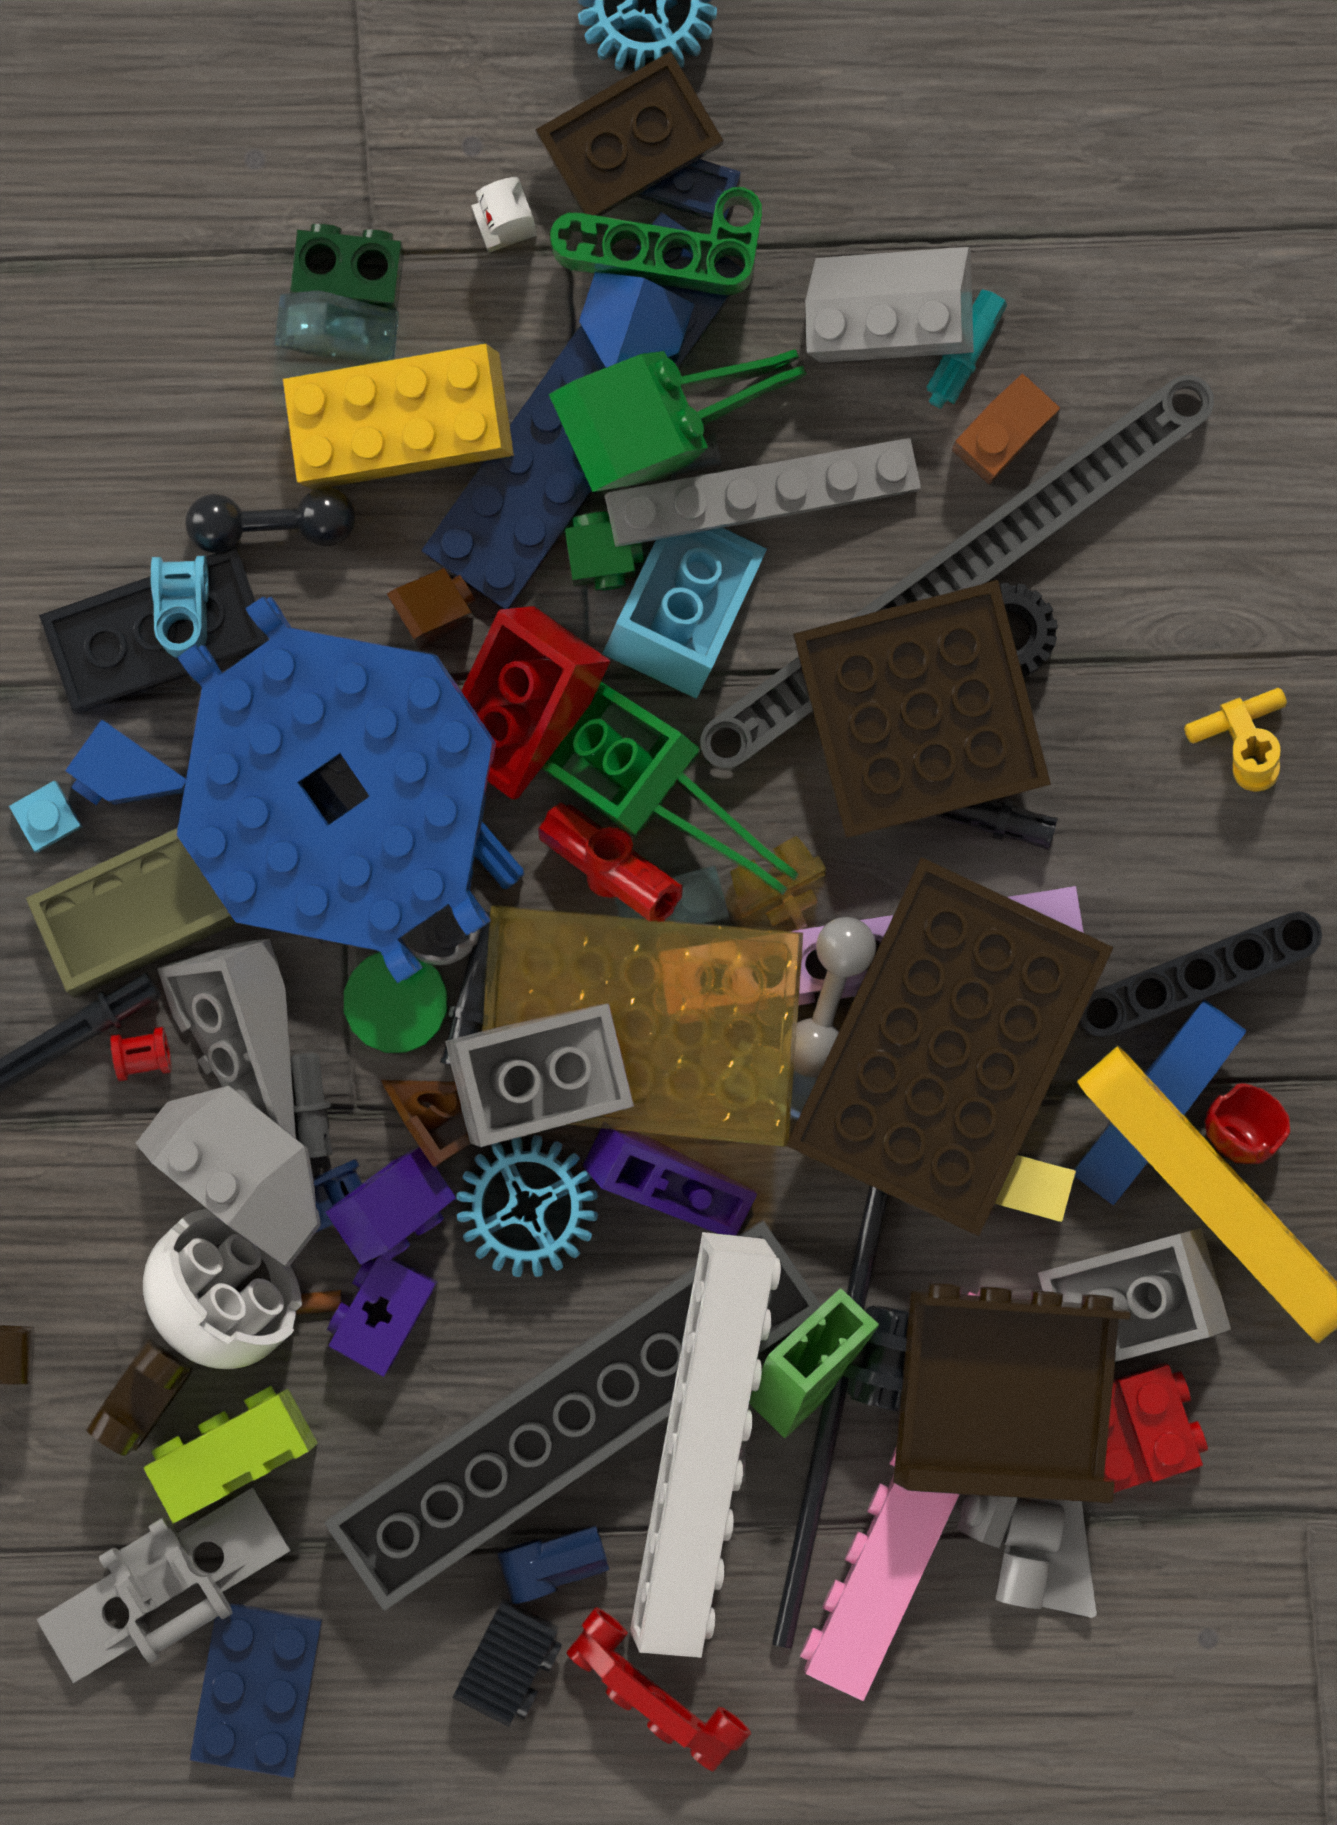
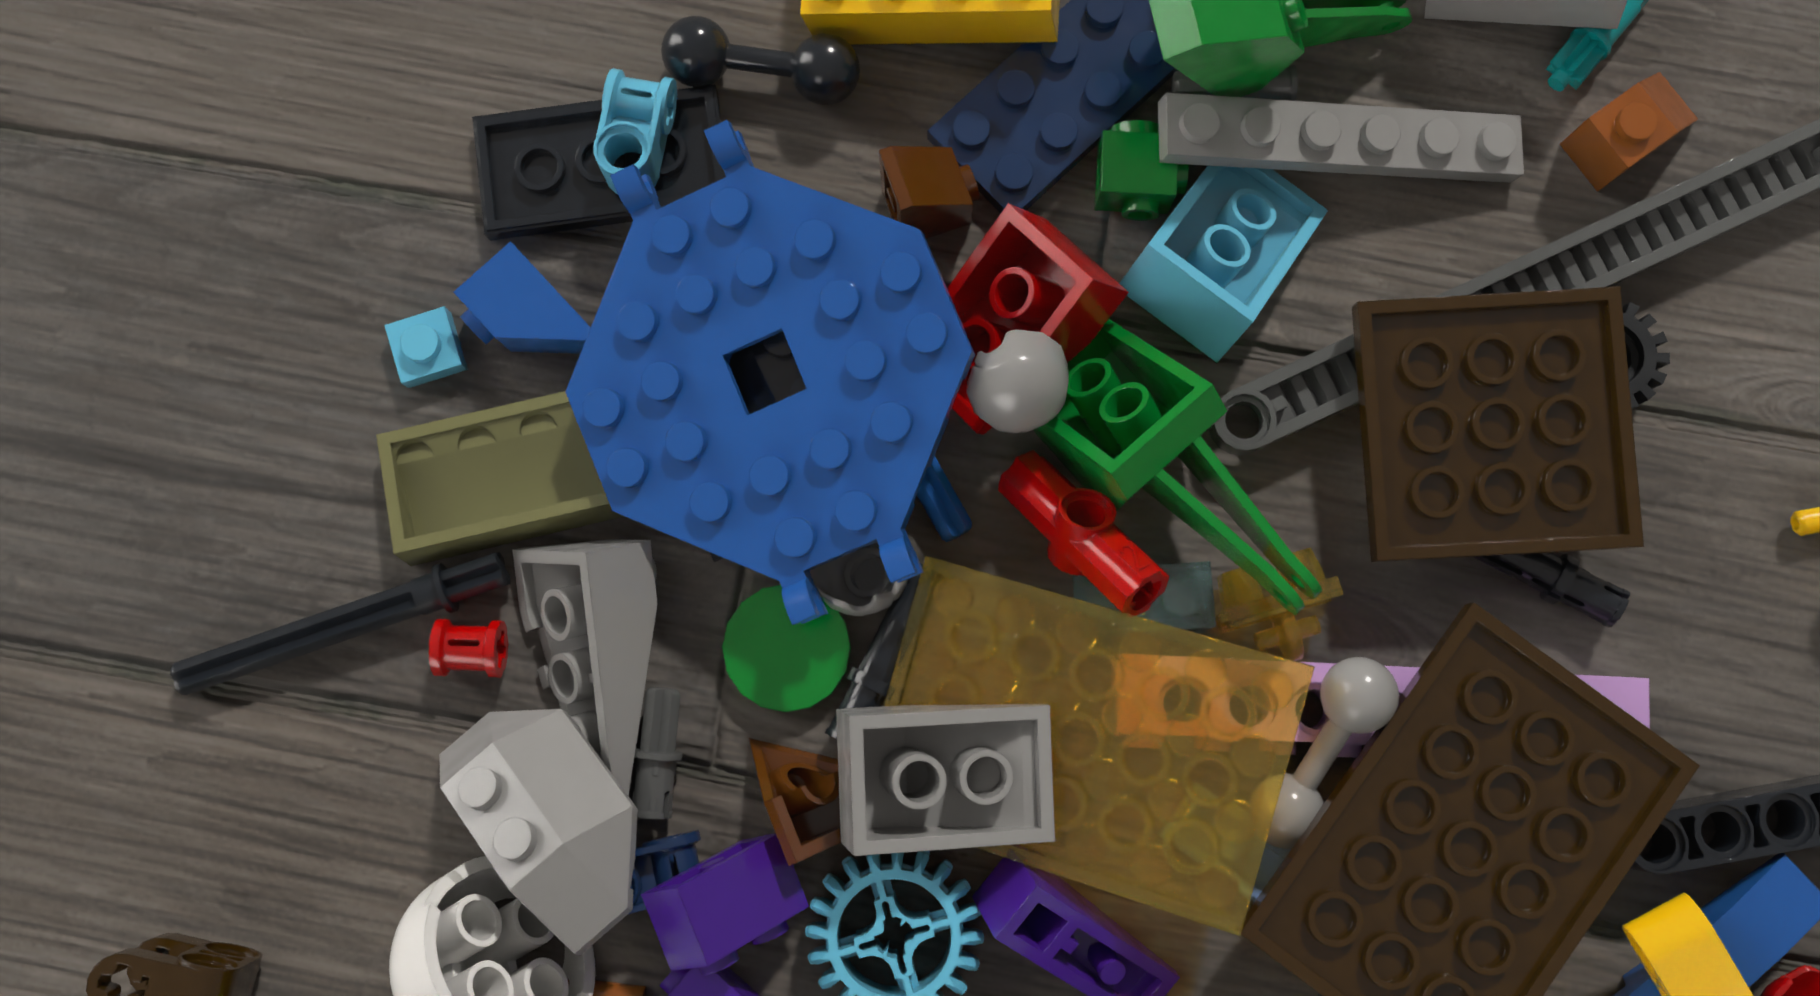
camera: 10 degrees right, 5 degrees down
(536, 756) = (1019, 382): none -> light grey hair

